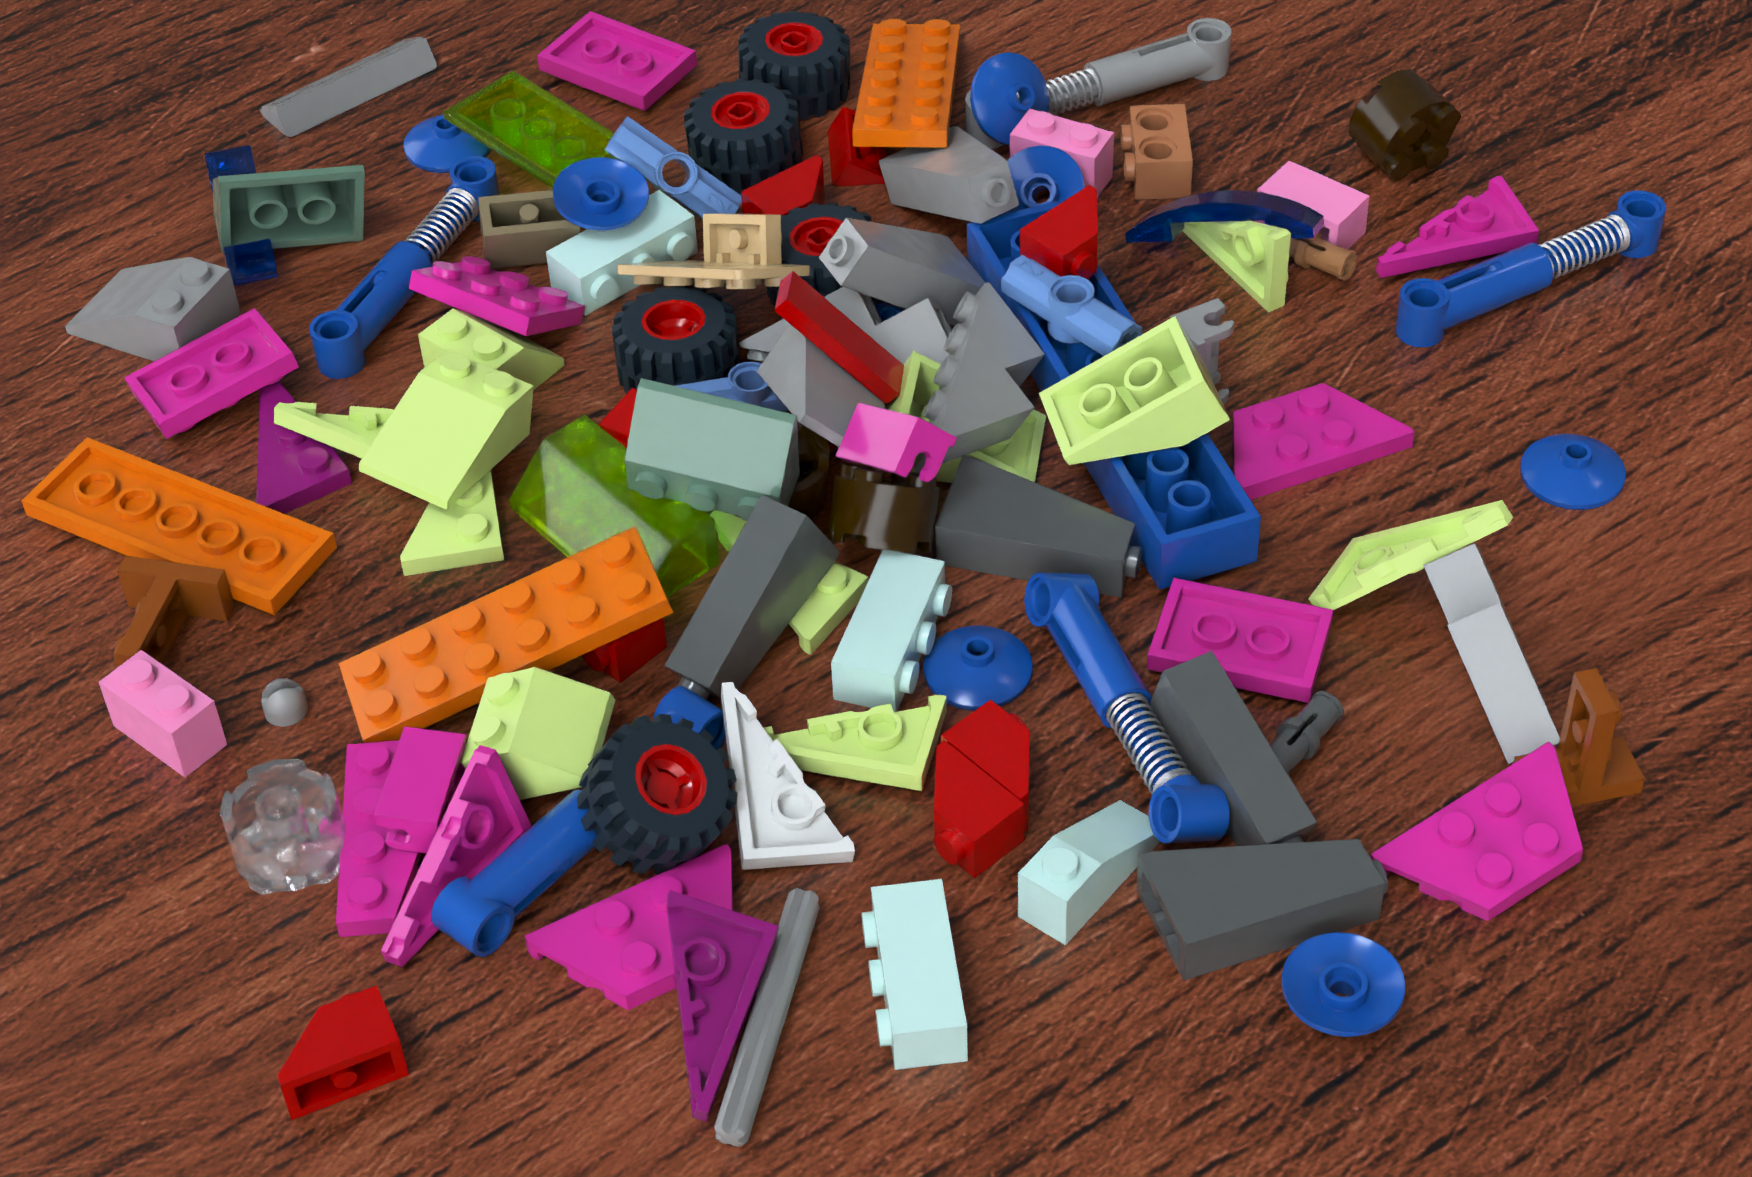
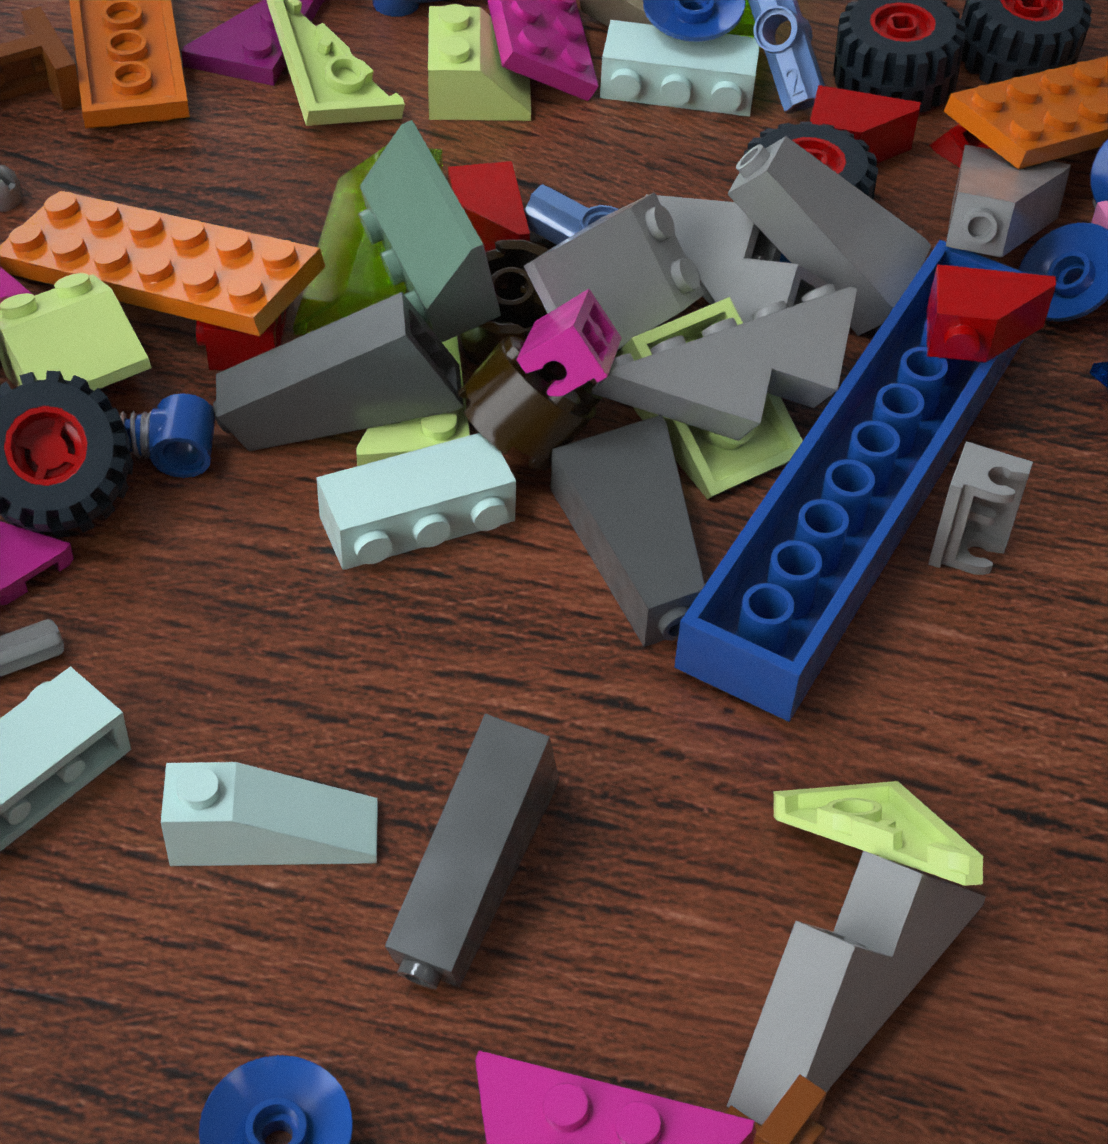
camera: 45 degrees right, 5 degrees up
(450, 429) = (345, 87): yellowish green slope -> none
(456, 536) = (293, 165): yellowish green wing -> none
(675, 337) = (602, 151): black wheel -> none
(736, 252) = (714, 133): tan bracket -> none
(775, 811) = (134, 546): white wing -> none
(839, 337) = (661, 230): red tile -> none
(870, 744) = (268, 570): yellowish green wing -> none
(973, 814) = (244, 689): red slope -> none
(978, 666) = (446, 610): blue dish -> none
(998, 746) = (325, 673): red slope -> none
(1068, 306) = (895, 369): medium blue piece -> none
(1135, 399) = (833, 484): yellowish green slope -> none
(1179, 805) = (504, 686): blue piece -> none
(1256, 638) = (665, 770): dark pink plate -> none
(1256, 899) = (328, 985): dark grey slope -> none
(1300, 735) = (578, 894): dark grey pin -> none
(1309, 438) = (993, 663): dark pink wing -> none

